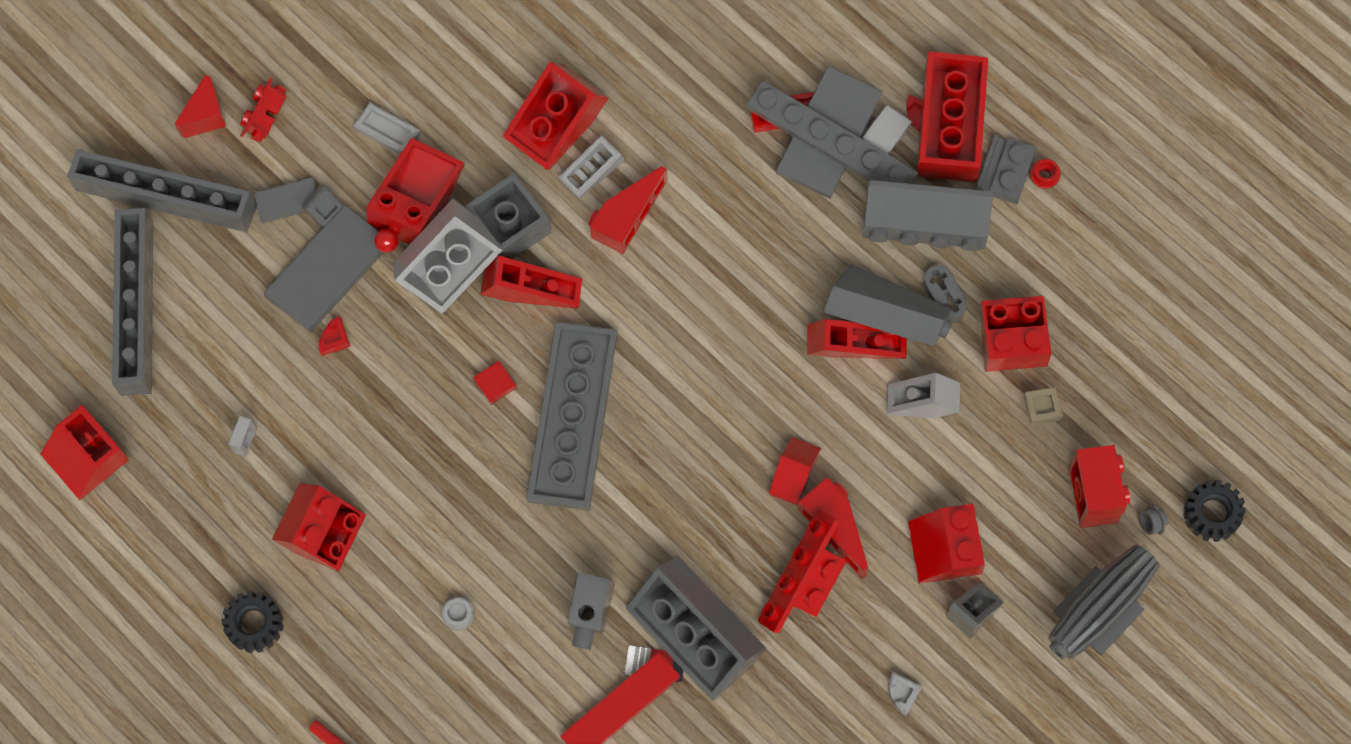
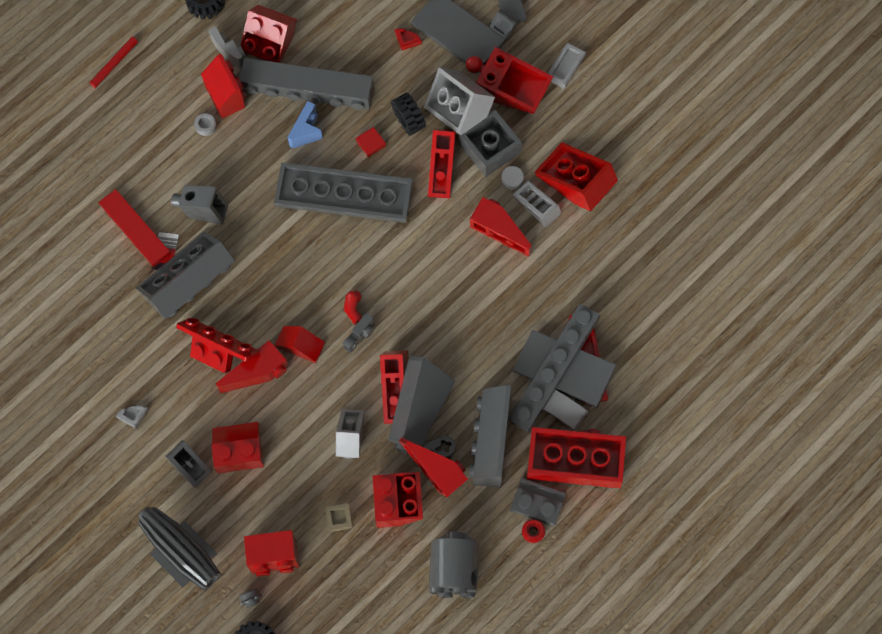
camera: 90 degrees right, 0 degrees up
(347, 574) = (227, 49): none -> light grey slope
(402, 470) = (307, 83): none -> dark grey brick
(406, 581) = (223, 86): none -> red slope
(460, 325) = (408, 114): none -> black tyre
(476, 473) = (304, 130): none -> medium blue slope
(553, 197) = (512, 177): none -> light grey tile
(739, 402) = (350, 305): none -> red arm
(778, 384) = (362, 330): none -> dark grey plate
(976, 279) = (442, 472): none -> red slope
(1102, 260) = (454, 565): none -> dark grey cylinder

